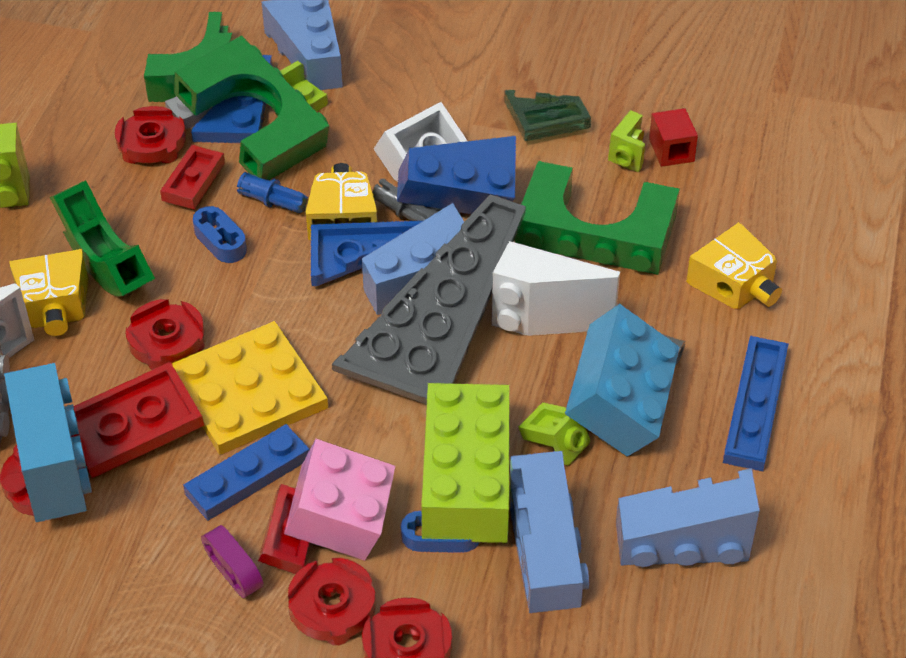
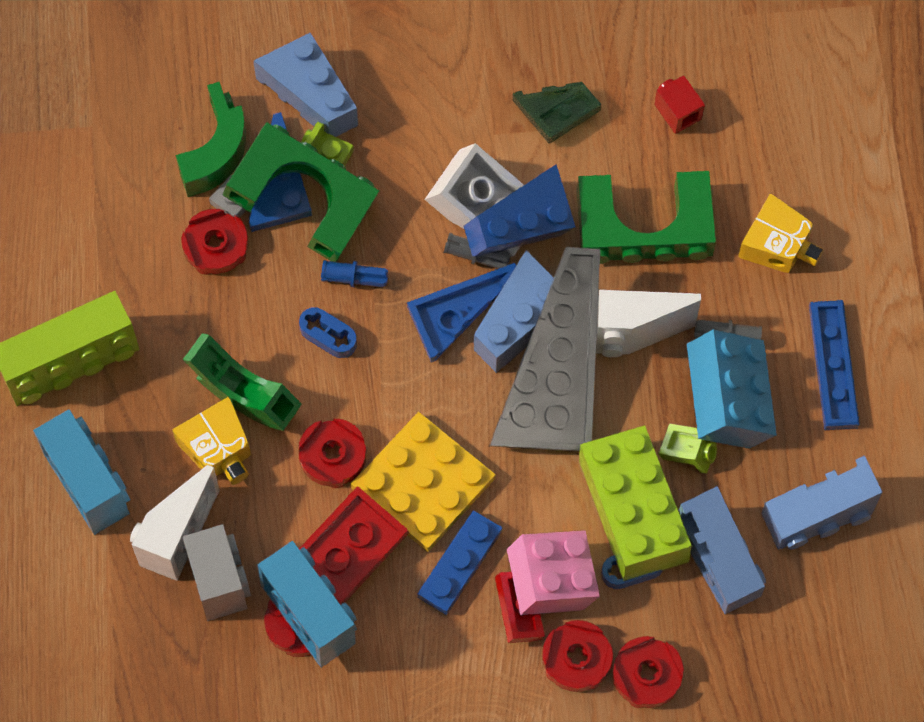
camera: 20 degrees left, 20 degrees up
(192, 177) = (276, 278): red plate -> none
(232, 561) = (488, 649): magenta beam -> none
(340, 198) = (421, 266): yellow torso -> none
(626, 142) = (641, 130): lime bracket -> none

